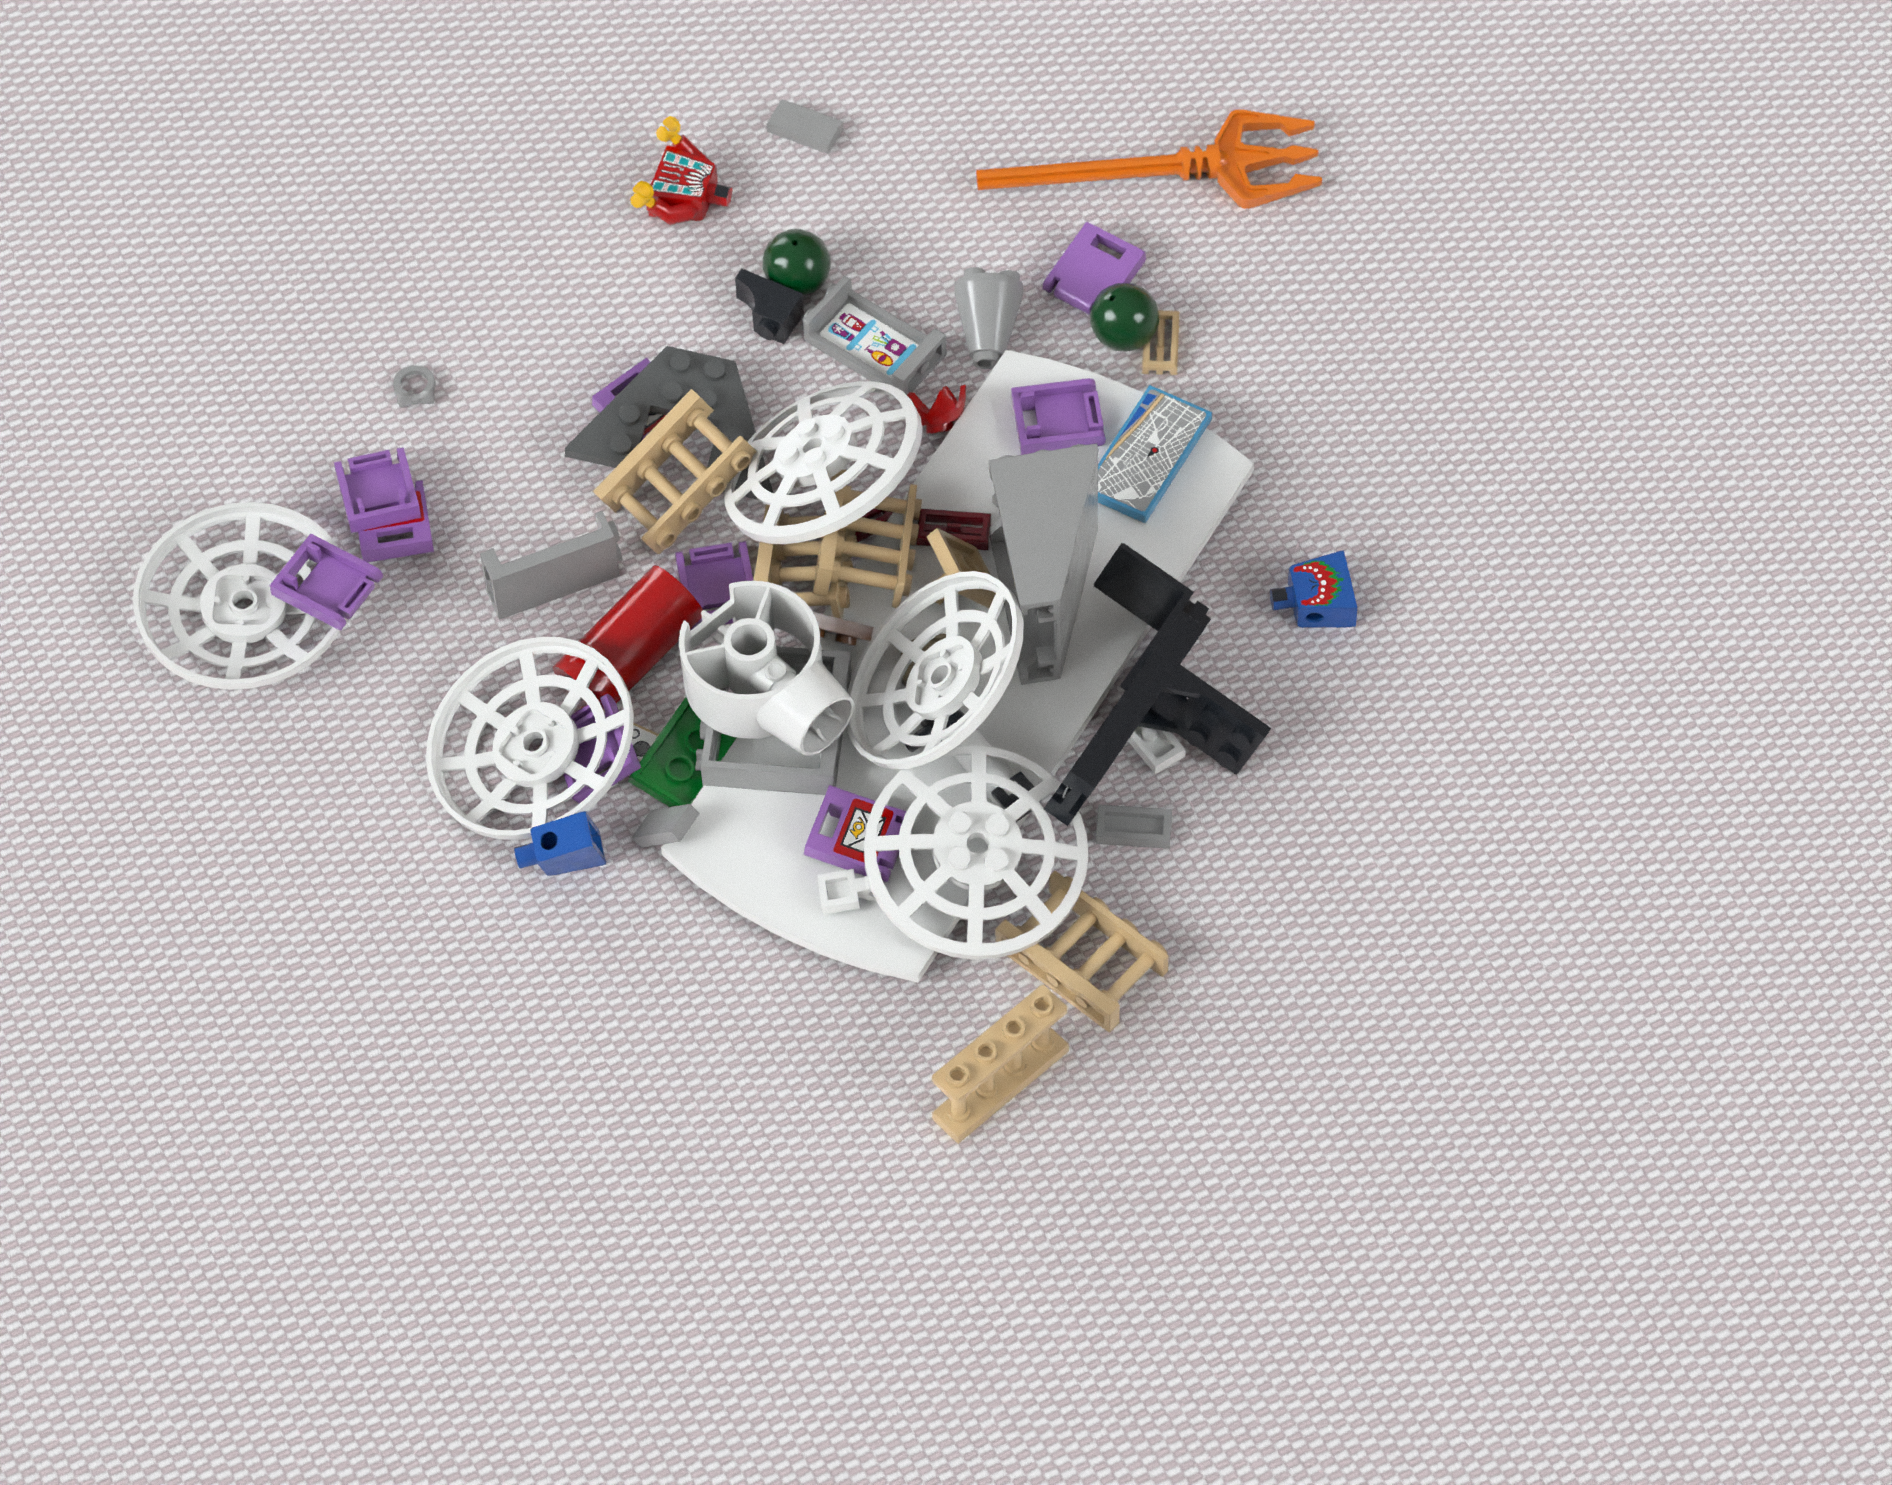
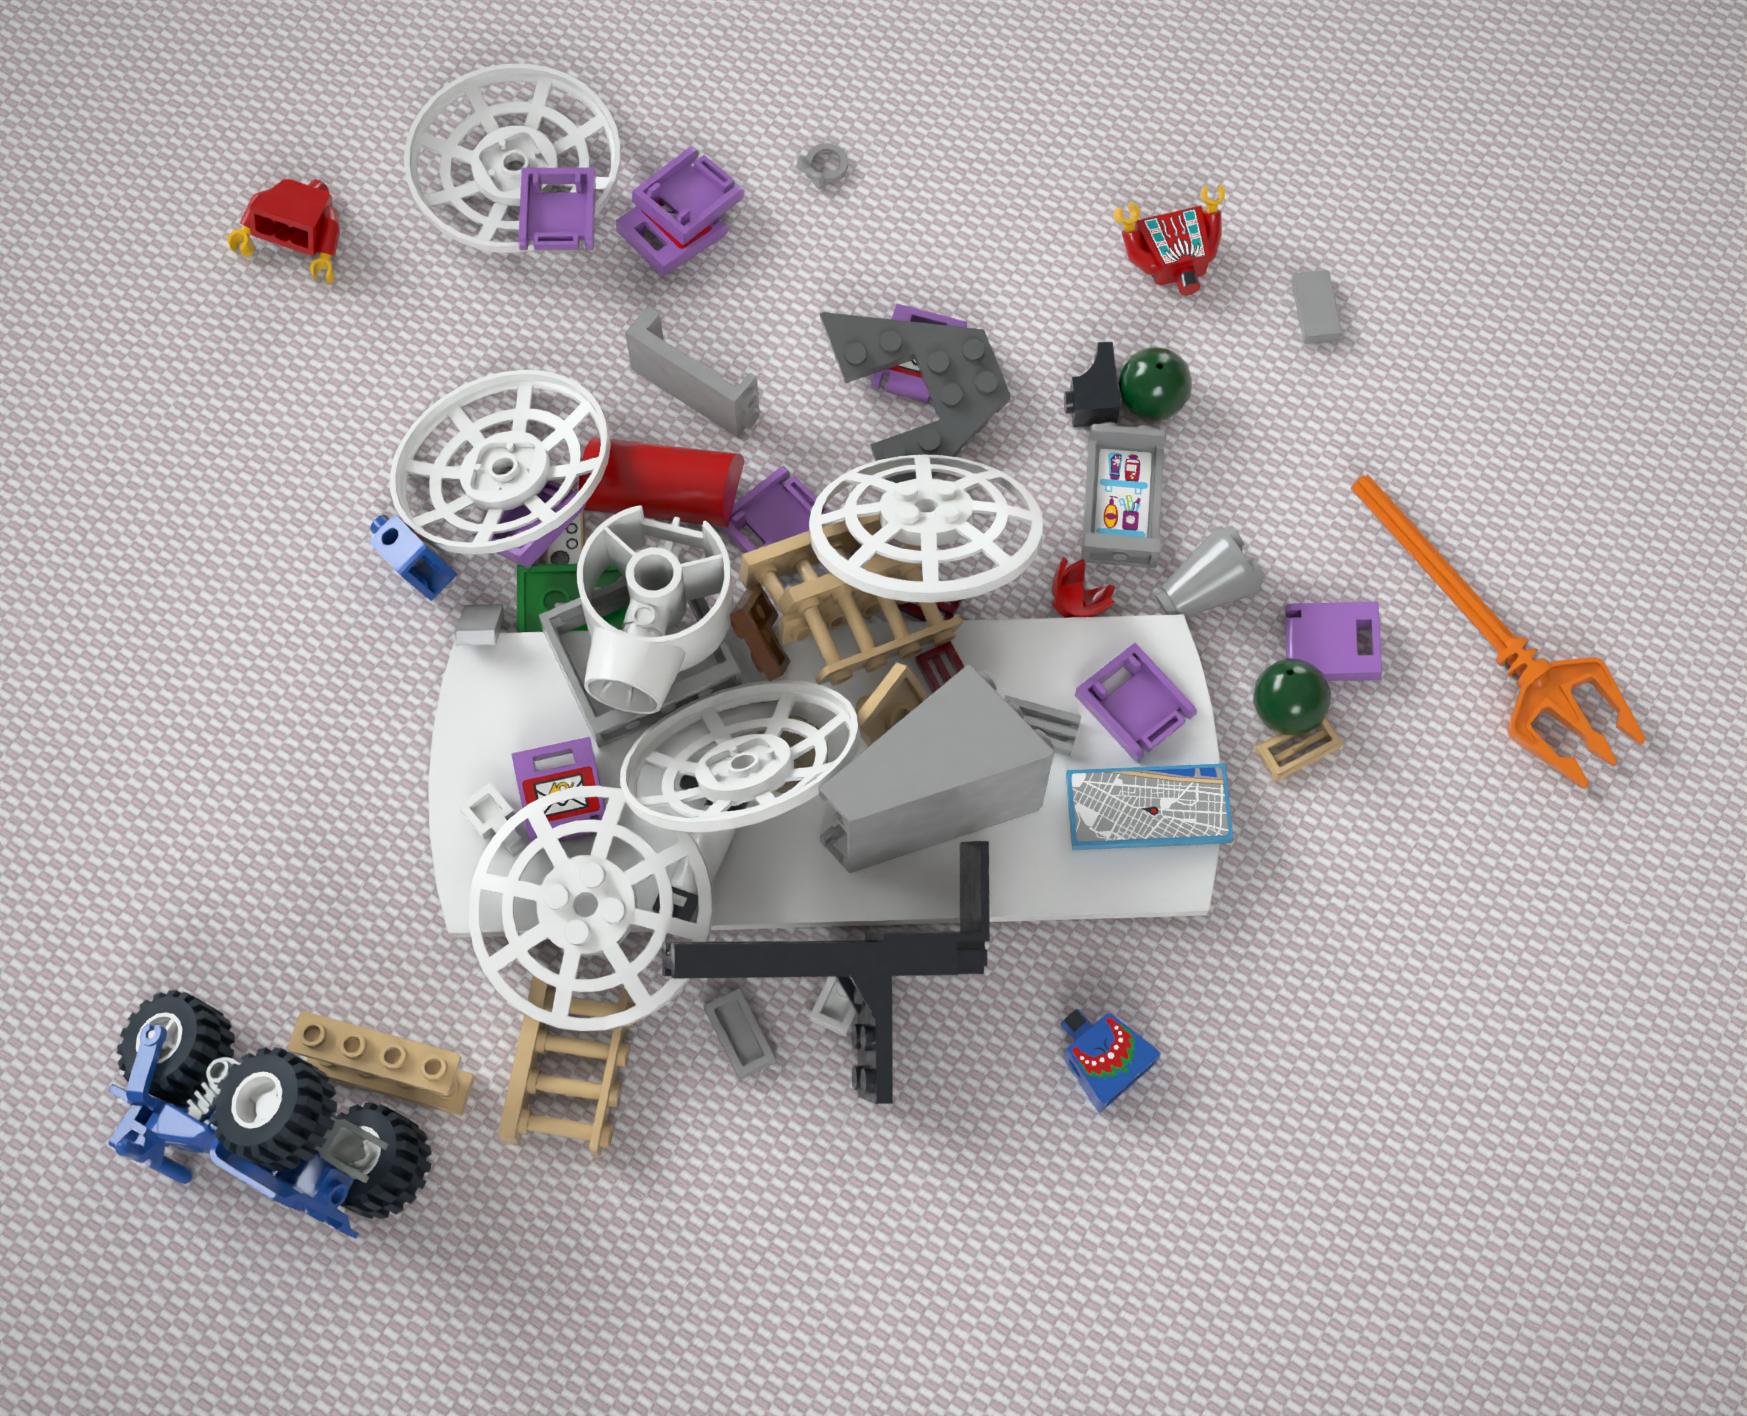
camera: 55 degrees right, 10 degrees up
(173, 784) = (295, 218): none -> red torso
(654, 450) = (844, 384): tan fence -> none
(1041, 1113) = (259, 1118): none -> piece

